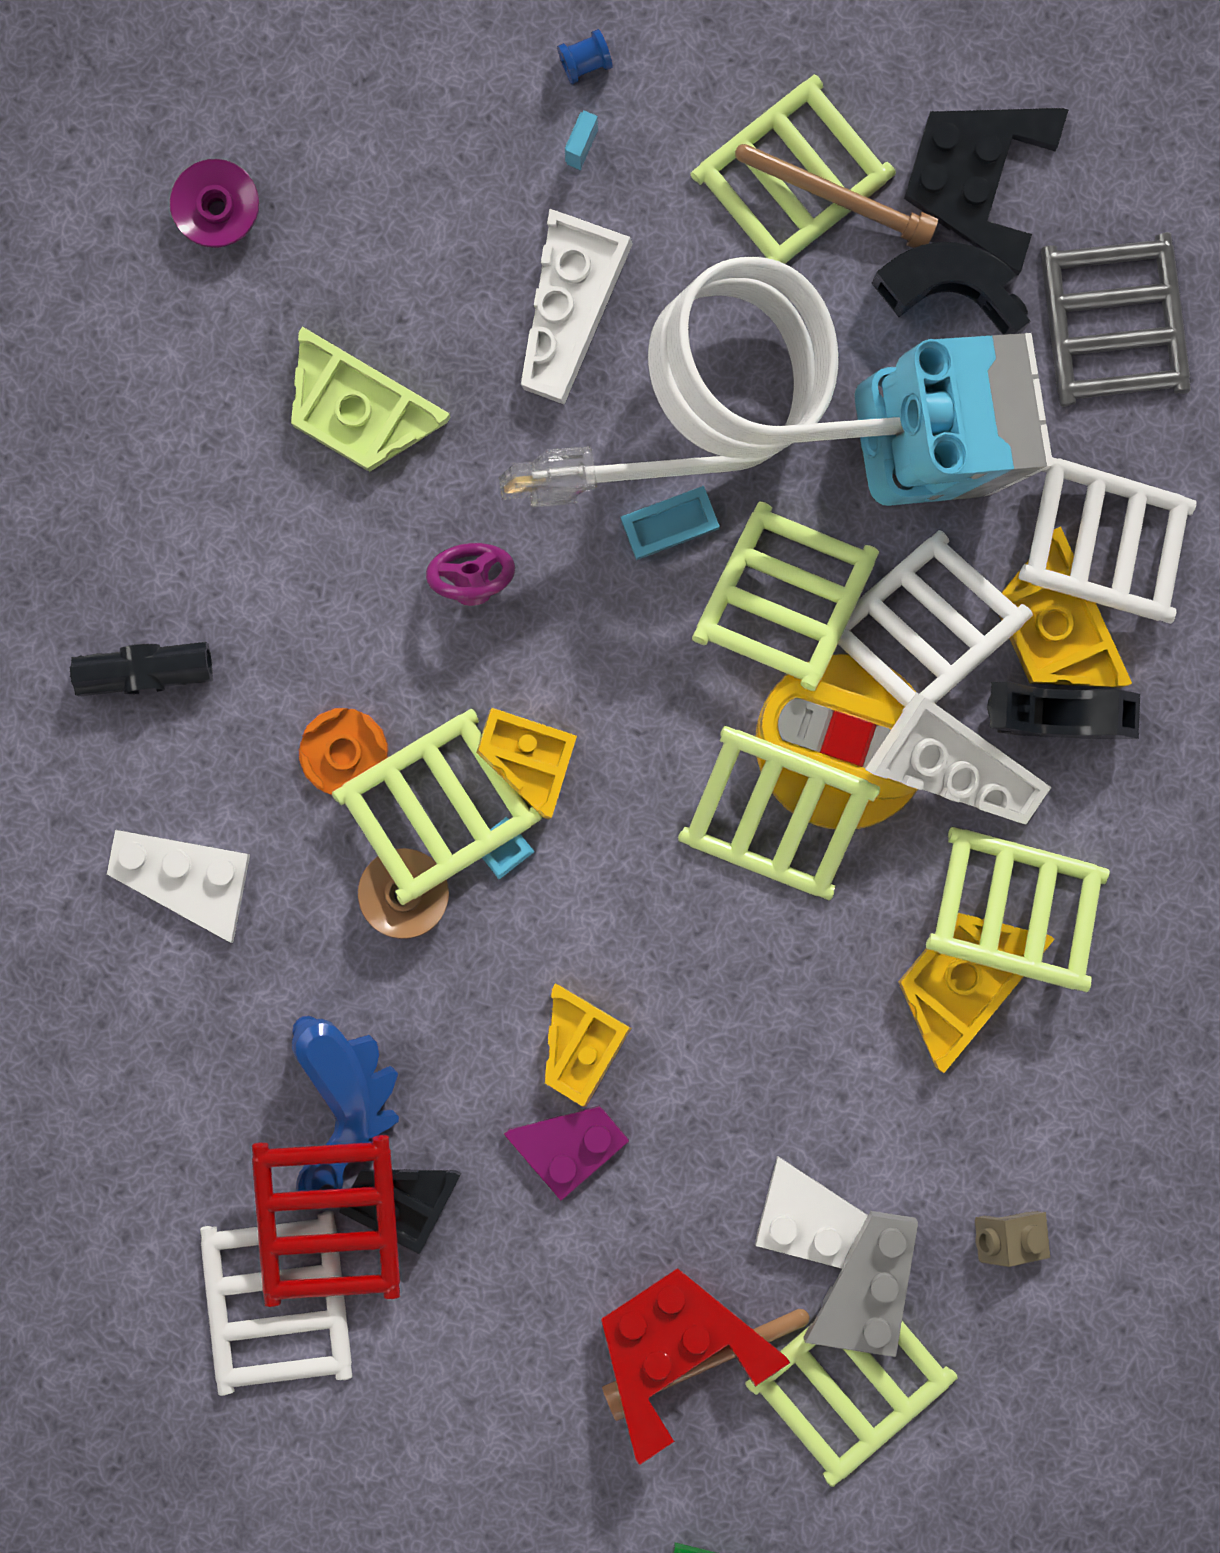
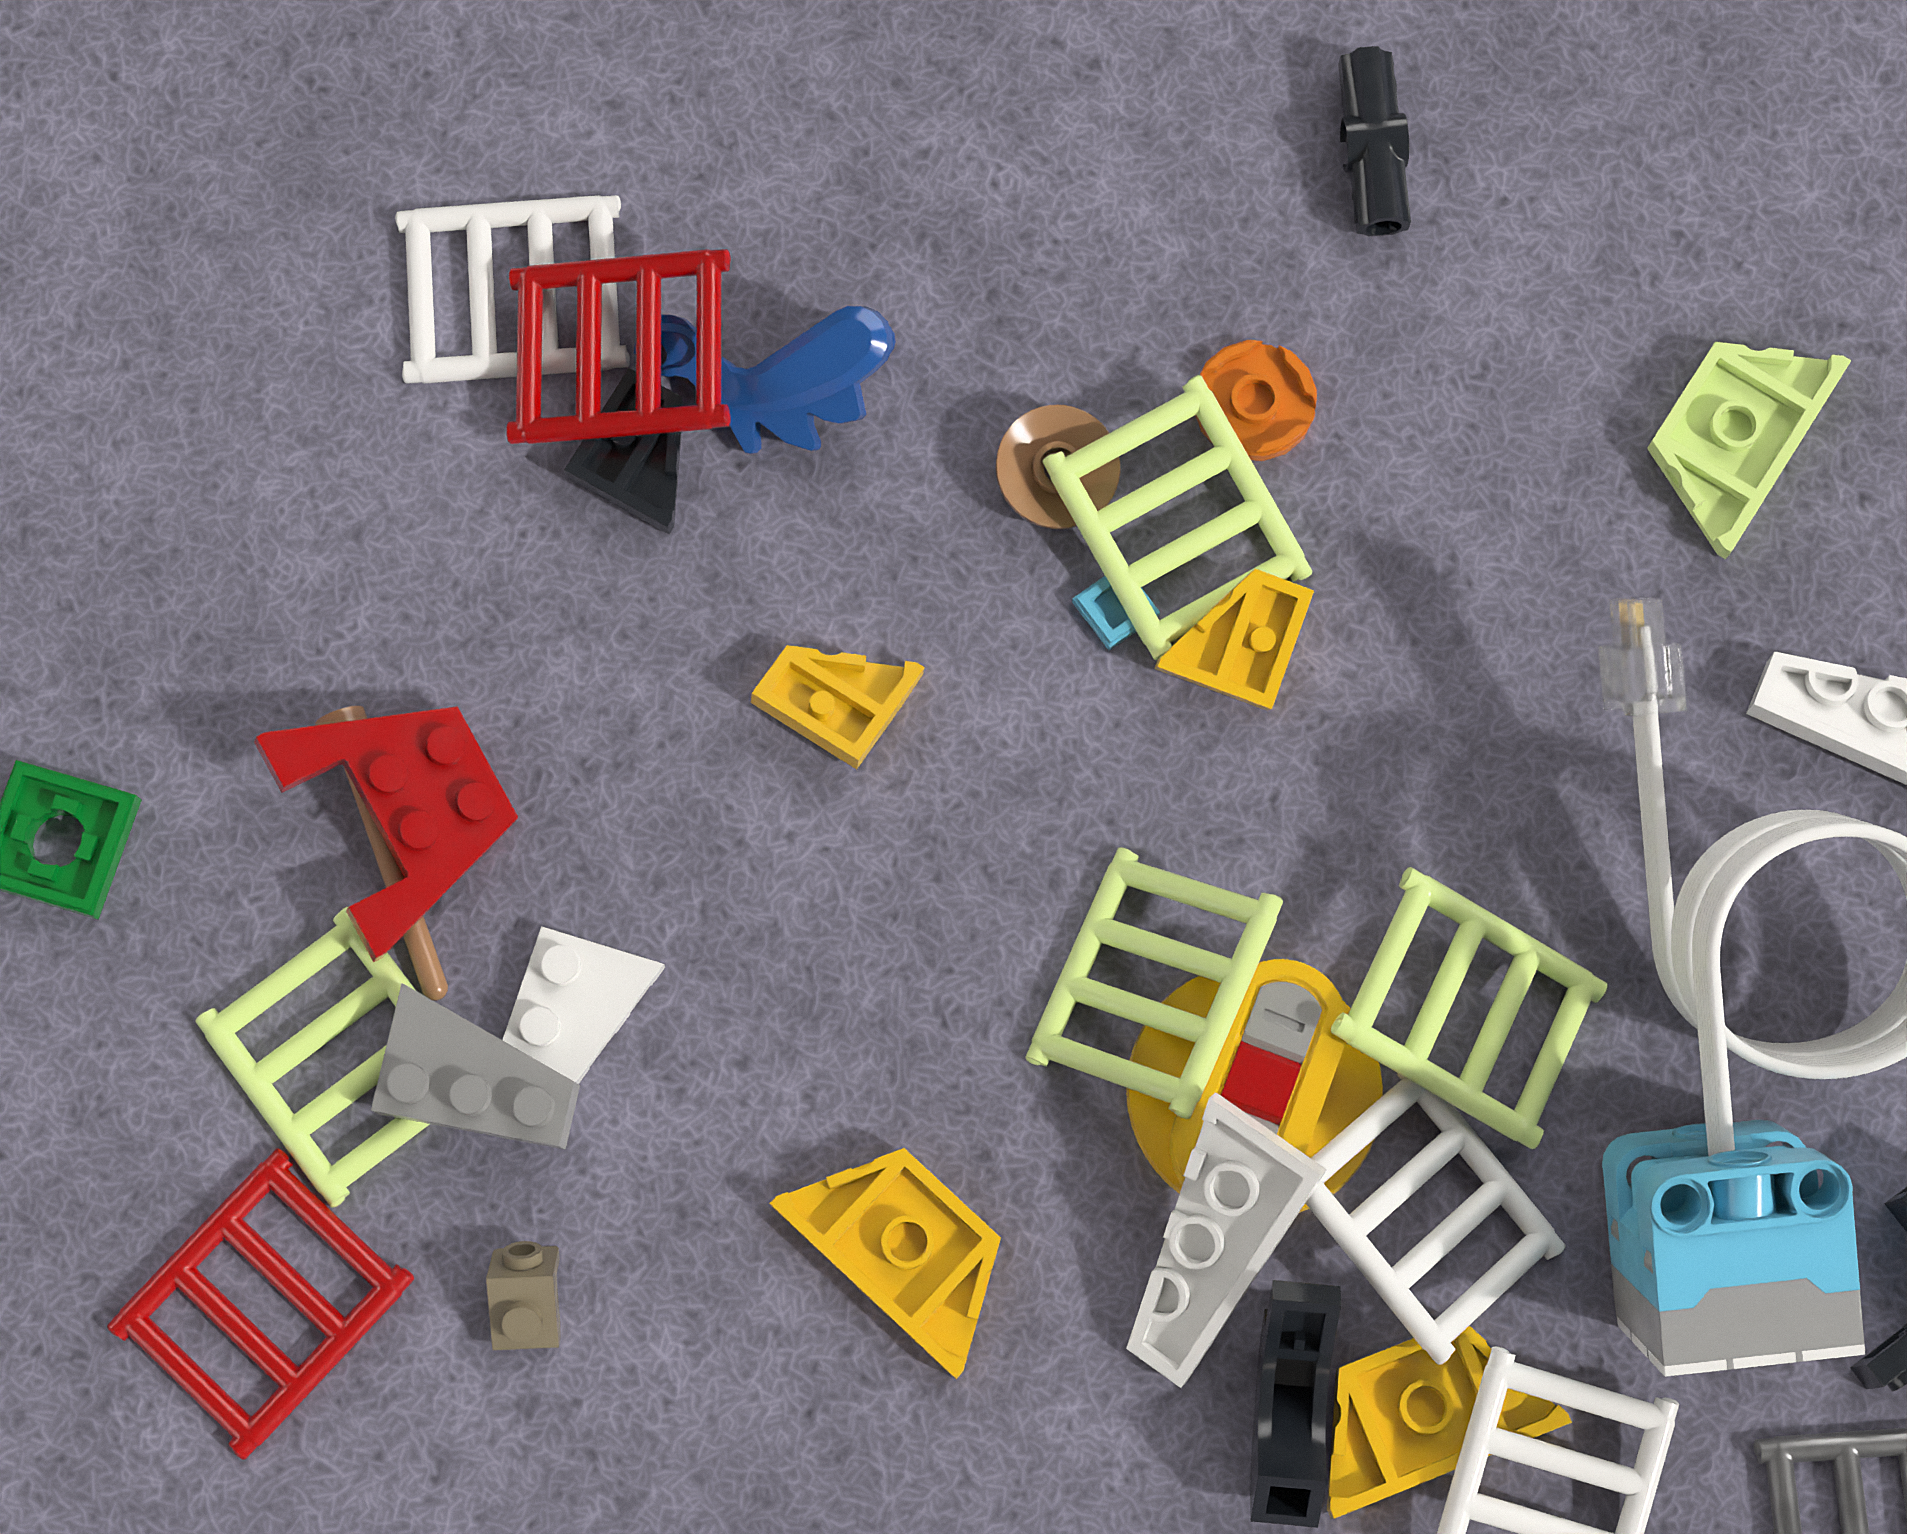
camera: 95 degrees right, 10 degrees down
(185, 877) = (1089, 190): white wing -> none
(471, 577) = (1497, 573): magenta piece -> none
(568, 1146) = (696, 678): magenta wing -> none
(670, 522) = (1575, 855): medium azure tile -> none
(986, 952) = (921, 1332): yellowish green bar -> none
(1076, 1393) = (182, 1273): none -> red bar

